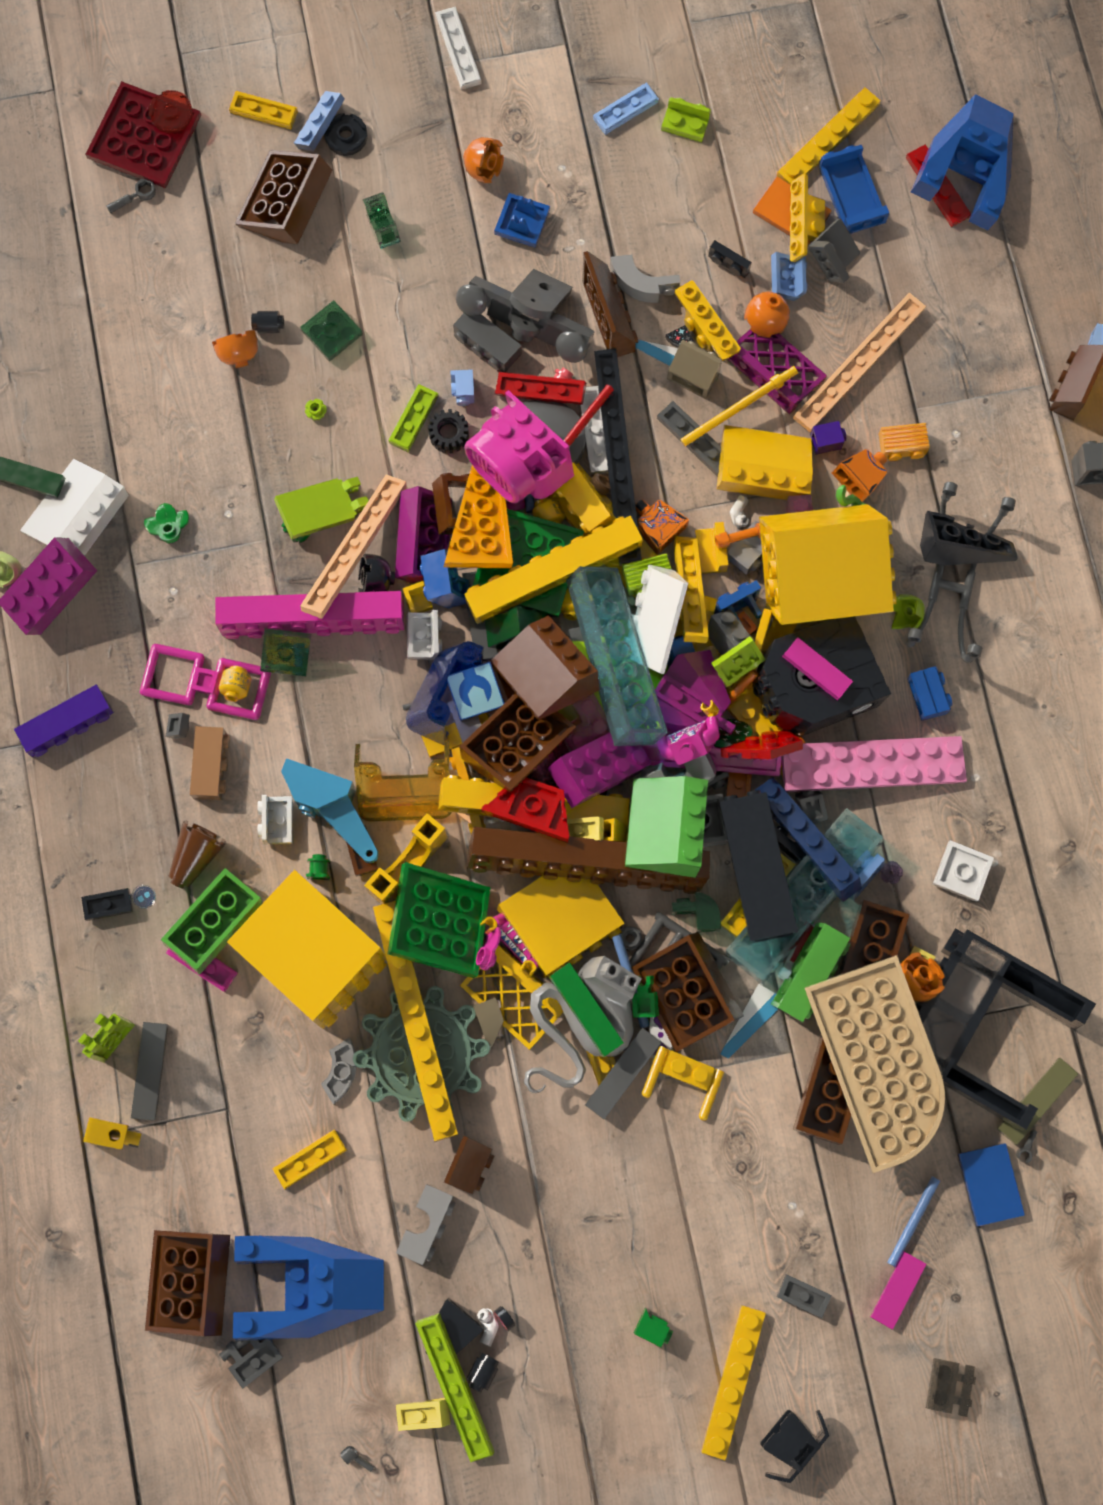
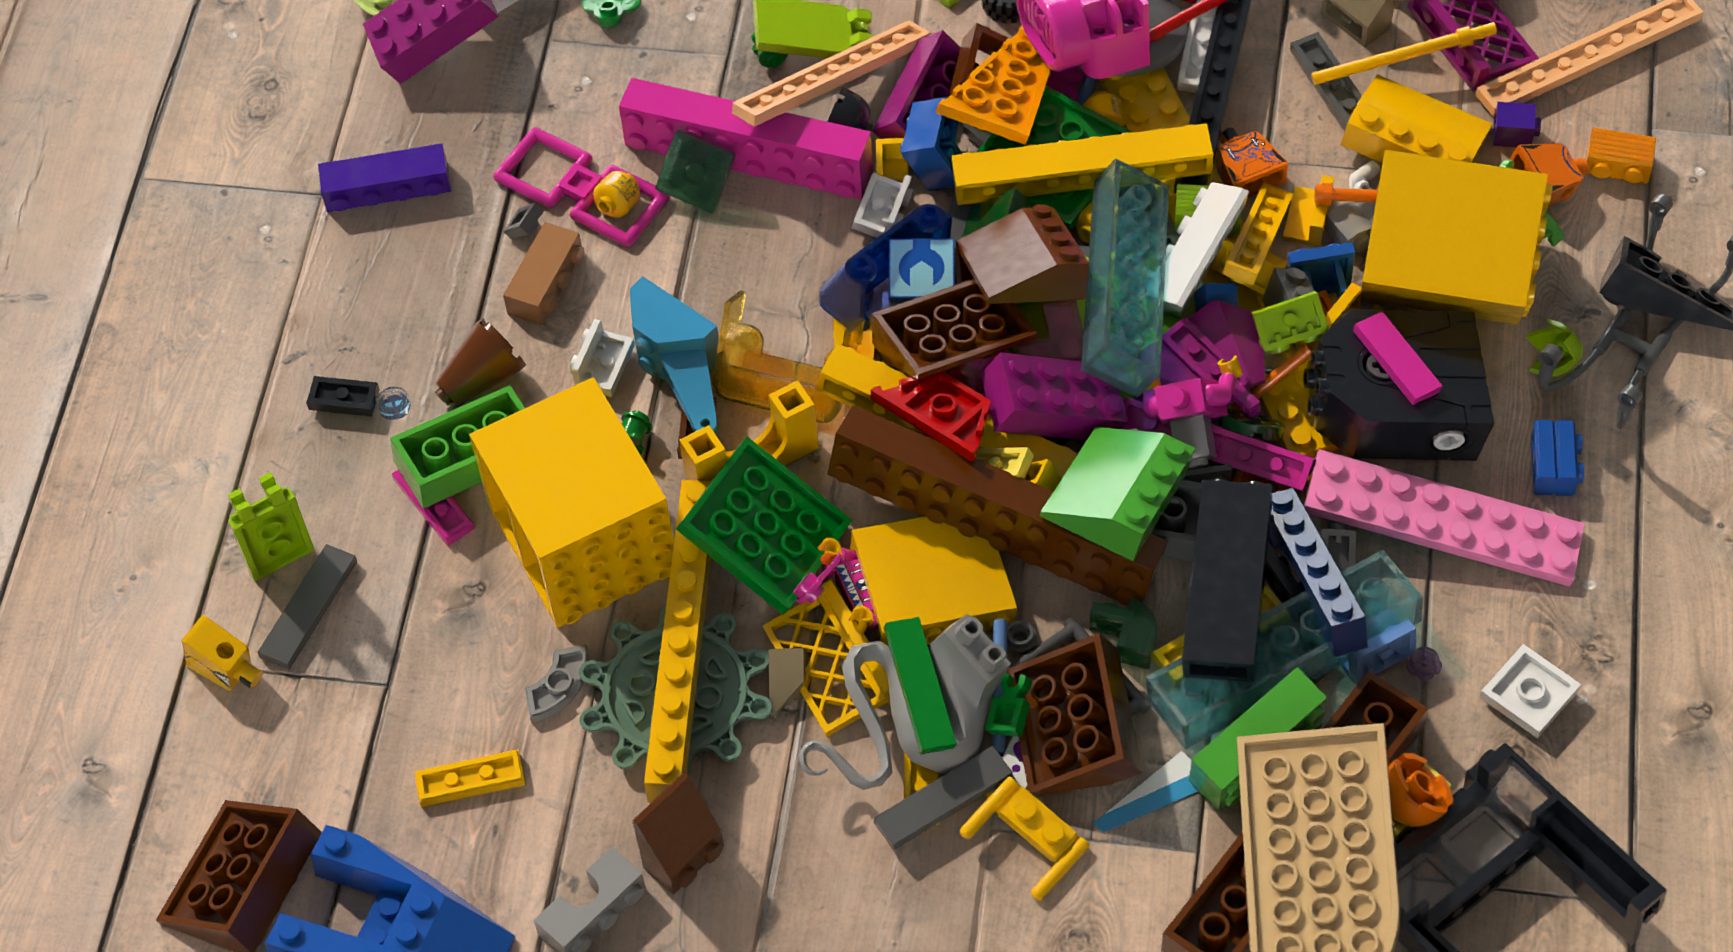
camera: 25 degrees right, 20 degrees down
(585, 502) = (1152, 97): yellow brick -> none
(601, 483) = (1184, 98): medium nougat tile -> none
(767, 746) = (1291, 436): red wing -> none

